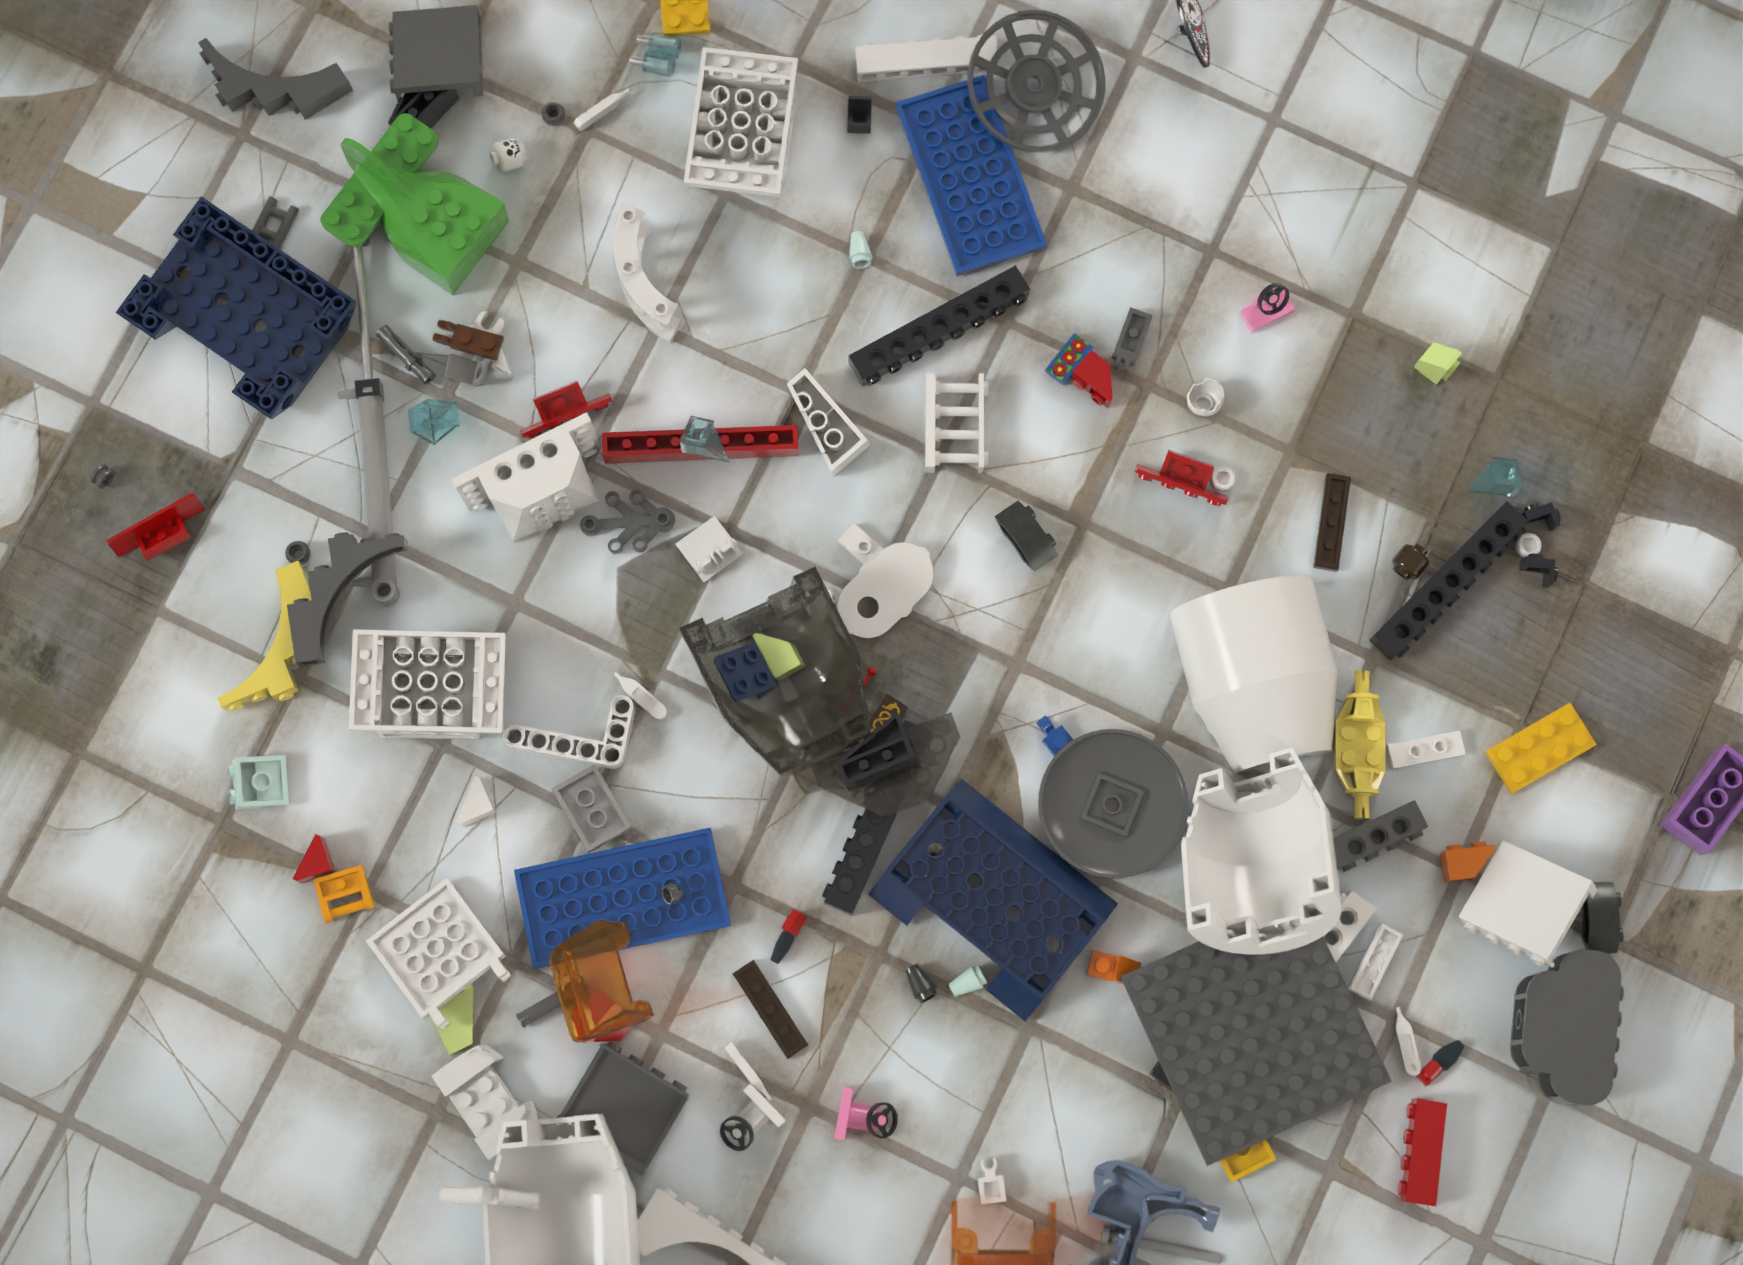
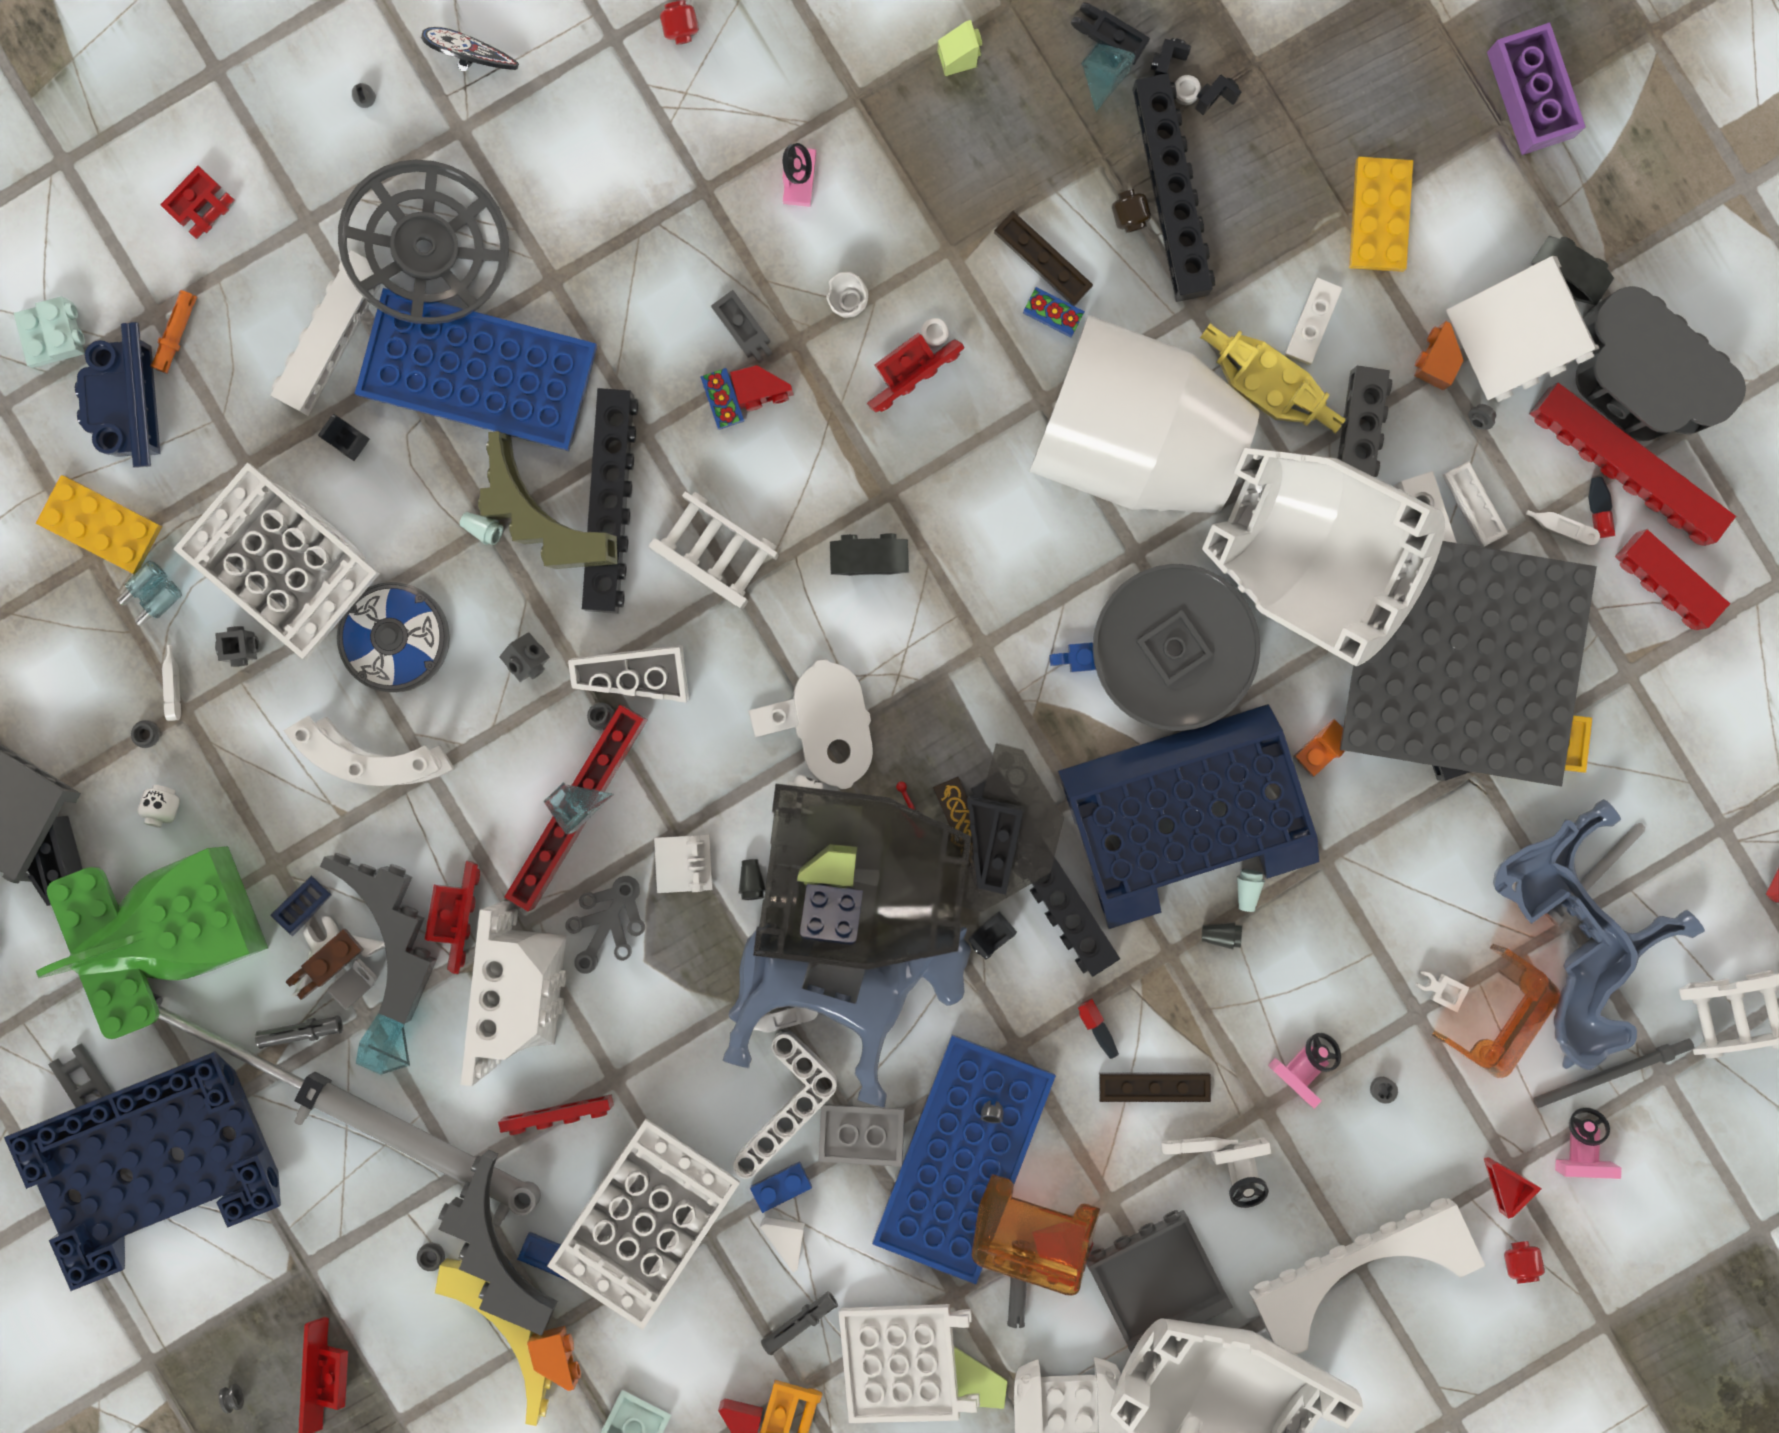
camera: 50 degrees left, 10 degrees up
(282, 684) = (553, 1357): none -> orange slope
(345, 627) = (538, 1252): none -> blue tile
(428, 859) = (808, 1316): none -> dark grey pin
(454, 568) = (545, 1117): none -> red plate
(498, 306) = (286, 906): none -> dark blue slope
(501, 401) = (383, 893): none -> dark grey arch
(513, 776) = (781, 1187): none -> blue plate
(659, 135) = (236, 639): none -> dark grey brick
(708, 752) = (778, 983): none -> sand blue animal
(729, 605) = (751, 881): none -> pearl dark grey cone
(738, 239) = (393, 637): none -> dish
(778, 415) = (596, 711): none -> dark grey plate
(786, 339) = (525, 657): none -> dark grey brick
(805, 808) = (991, 935): none -> black bracket
(885, 282) = (529, 523): none -> olive arch
(887, 1196) = (1392, 1089): none -> dark grey bush
(1298, 552) = (1053, 312): none -> tile
(1316, 156) = (679, 22): none -> red head
(1444, 923) = (1482, 416): none -> dark grey plate
(1488, 1062) = (1632, 465): none -> red brick
(1530, 464) = (1110, 31): none -> black hinge

